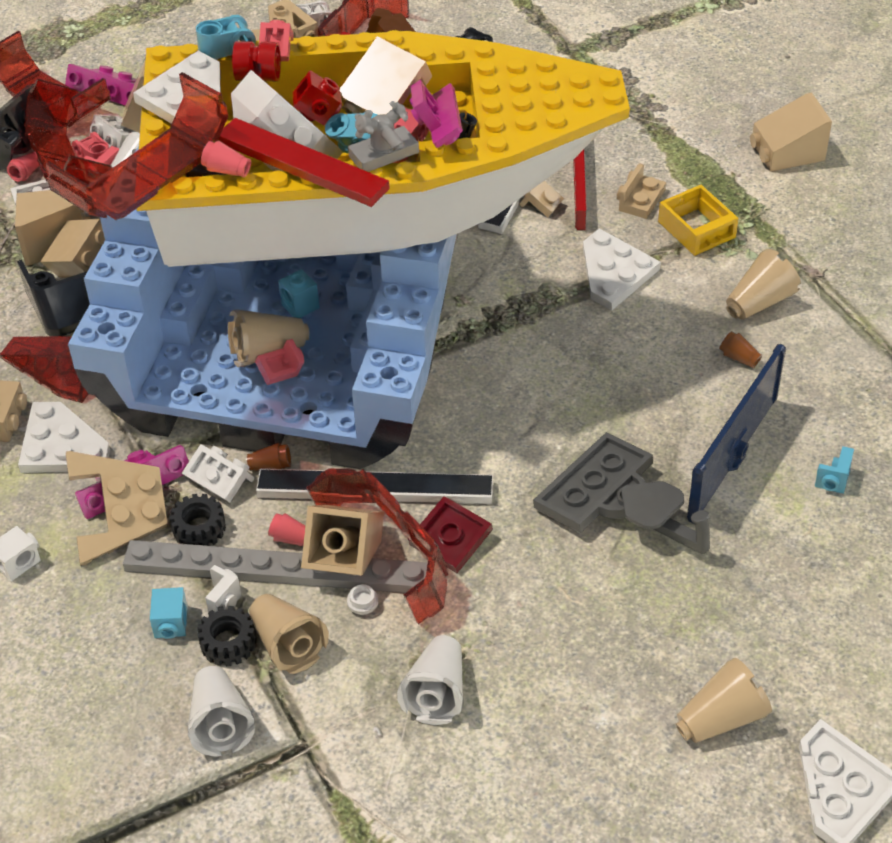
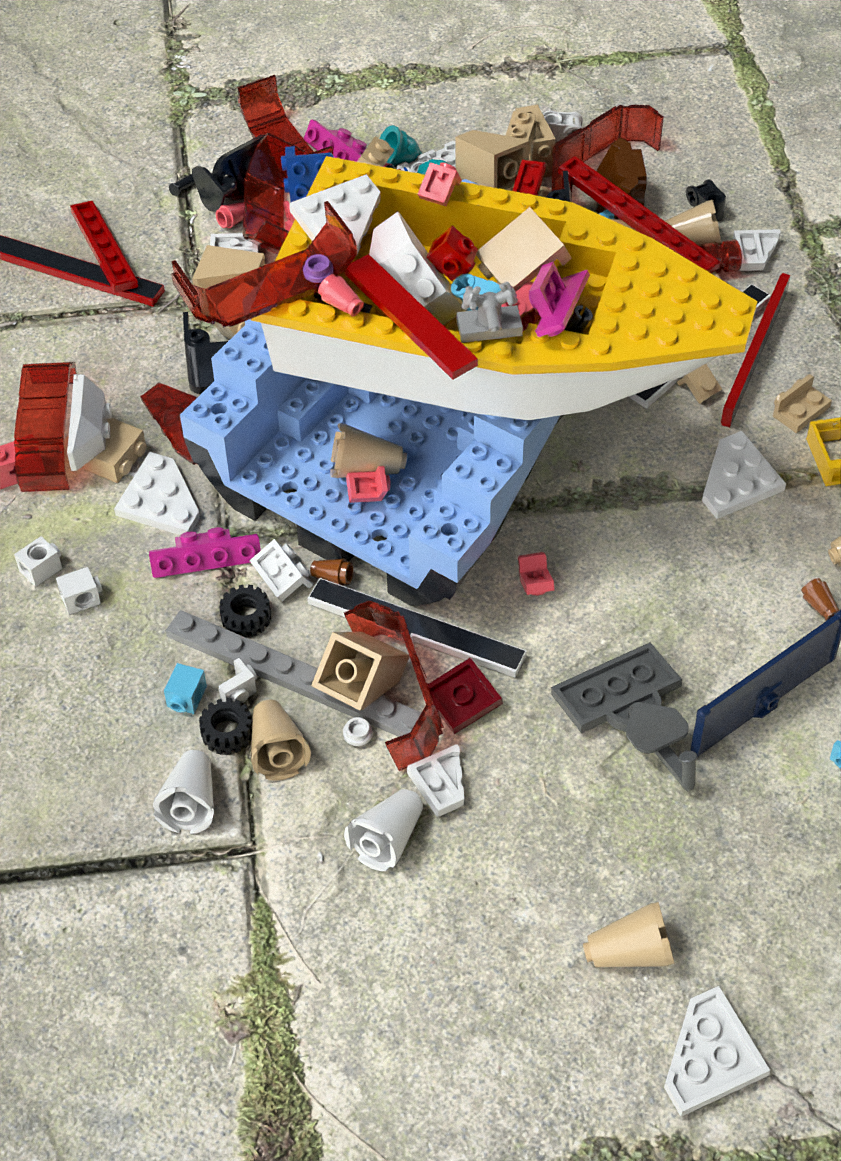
camera: 20 degrees right, 5 degrees up
(92, 109) = (300, 171): none -> blue bracket
(131, 502) = (193, 576): tan wing -> none
(192, 140) = (317, 268): none -> medium lavender plate
(219, 35) = (391, 167): medium azure piece -> none
(261, 59) = (415, 202): red wheel -> none
(287, 530) = (315, 642): coral cone -> none
(299, 294) = (413, 422): medium azure brick -> none
(465, 619) = (439, 780): none -> white wing
(468, 405) = (534, 574): none -> coral bracket

